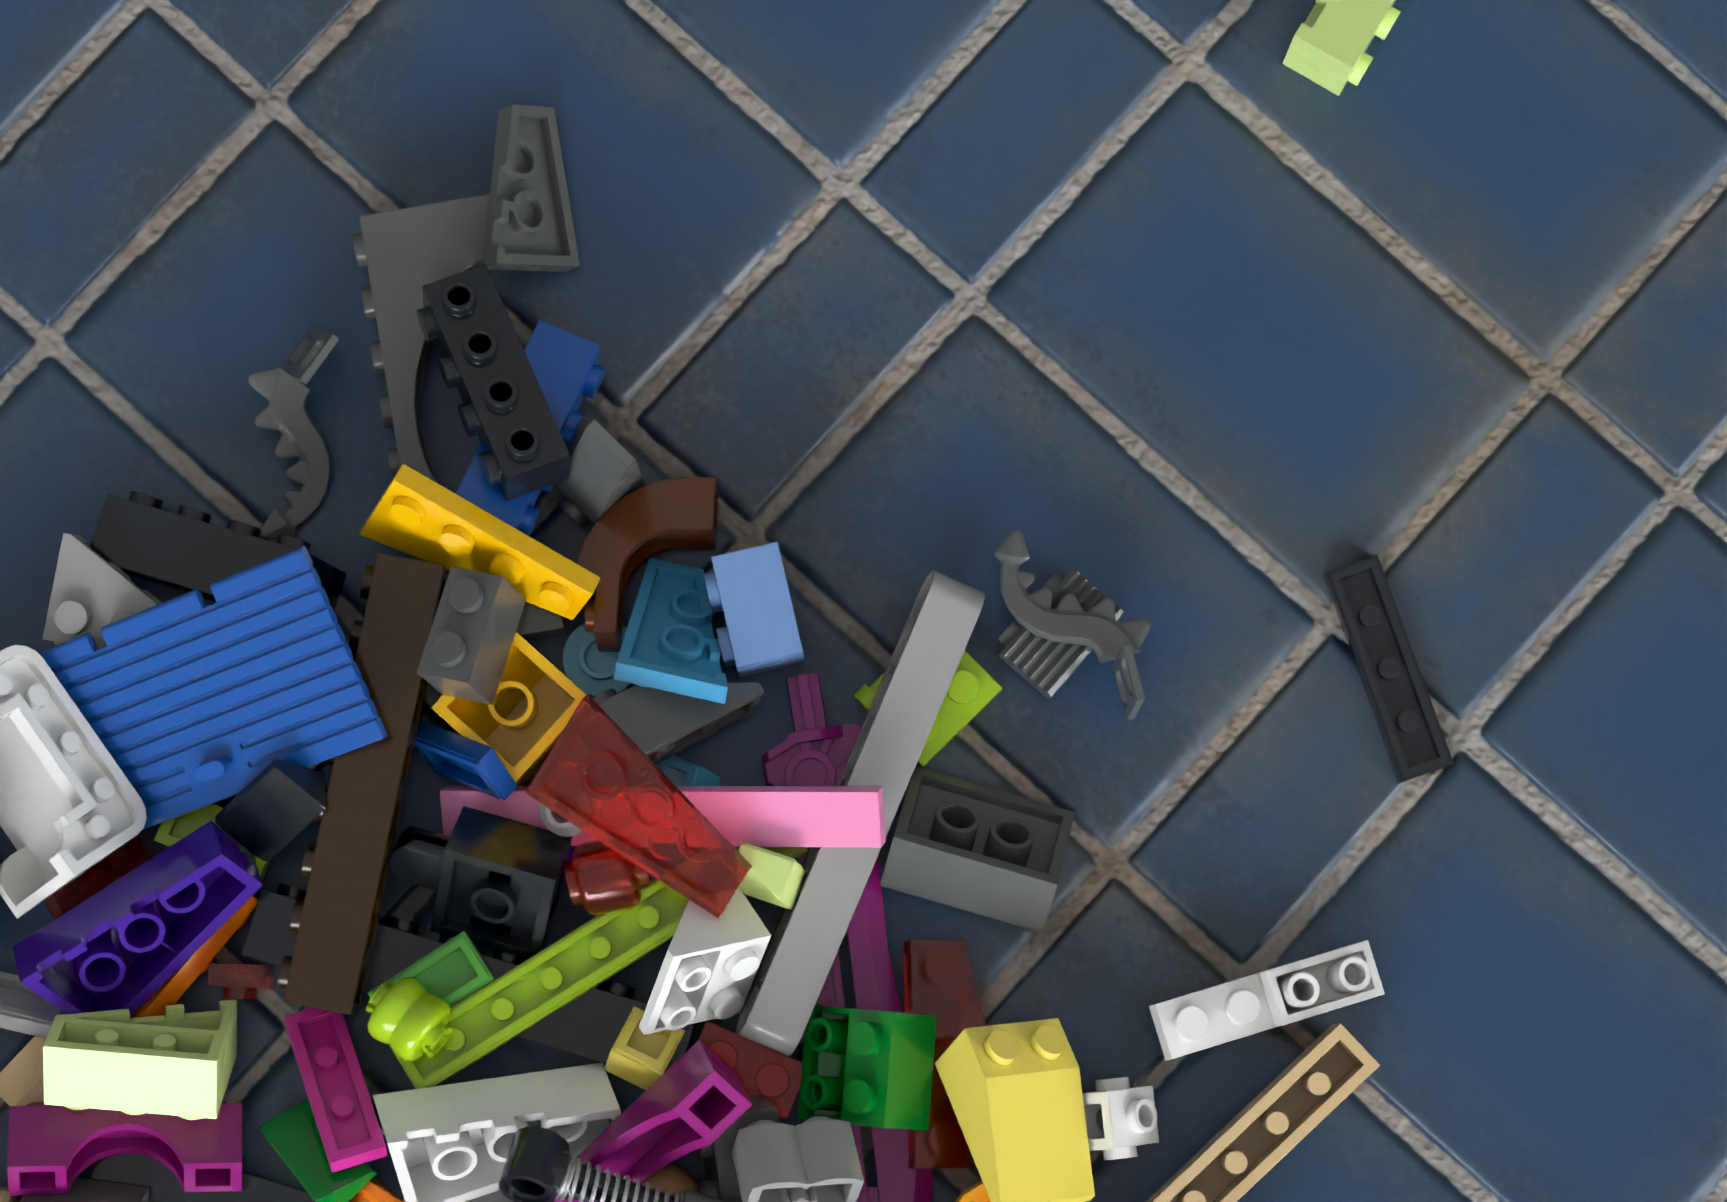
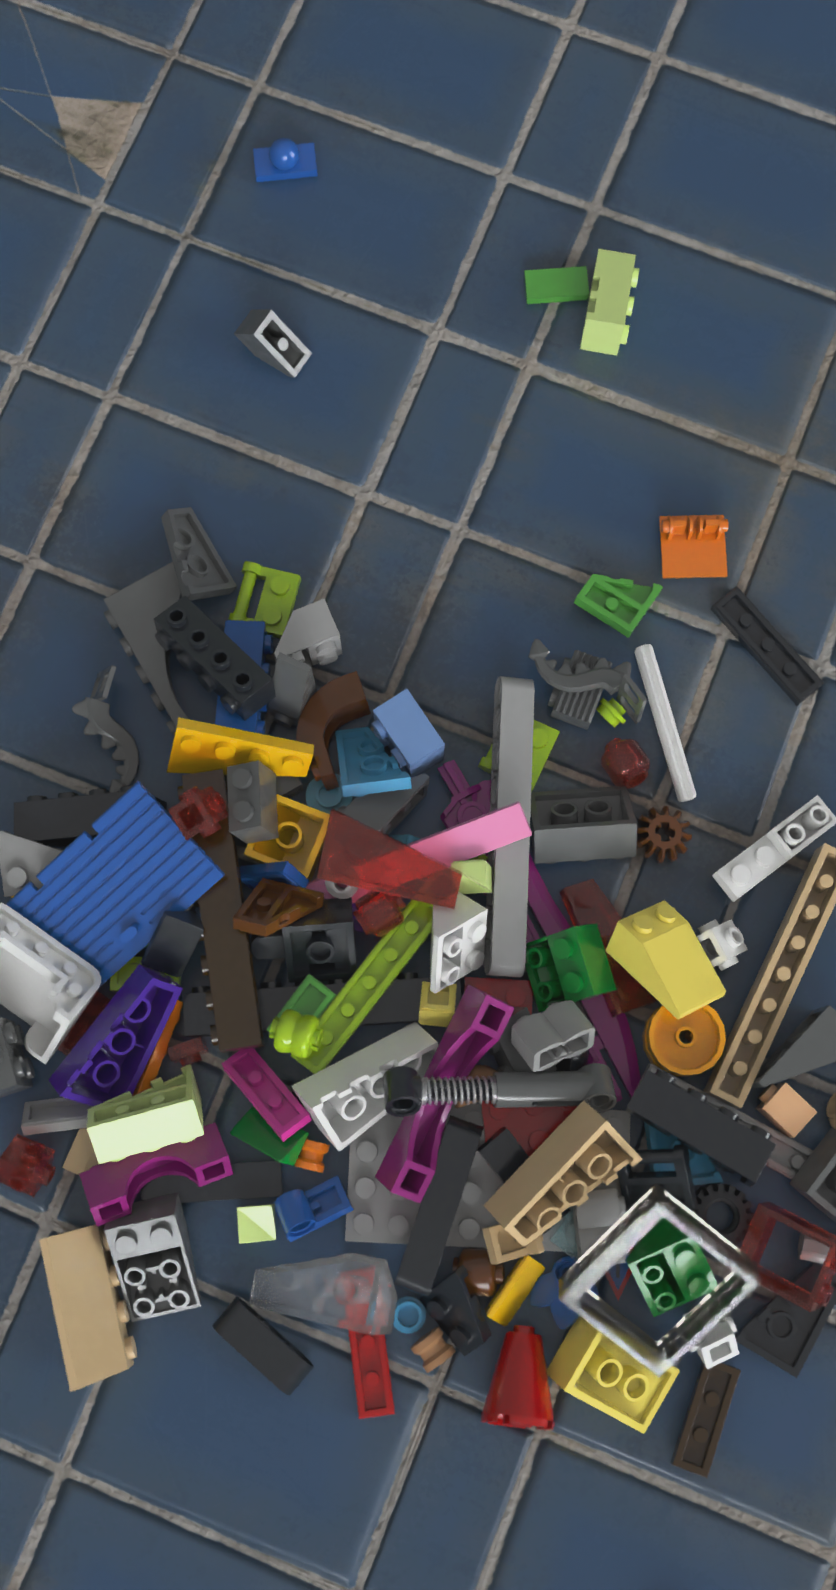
camera: 20 degrees left, 5 degrees down
(380, 627) = (199, 812): none -> clear red brick
(447, 812) = (275, 906): none -> reddish brown wing
(632, 311) = (276, 597): none -> lime plate
(657, 397) = (311, 635): none -> light grey slope
(1085, 777) = (625, 762): none -> clear red head
(1095, 687) = (611, 711): none -> lime plate
(1117, 906) = (671, 827): none -> reddish brown gear
(1175, 511) = (617, 601): none -> bright green wing
(1175, 734) = (665, 723): none -> white axle
(1334, 463) = (693, 546): none -> orange hinge

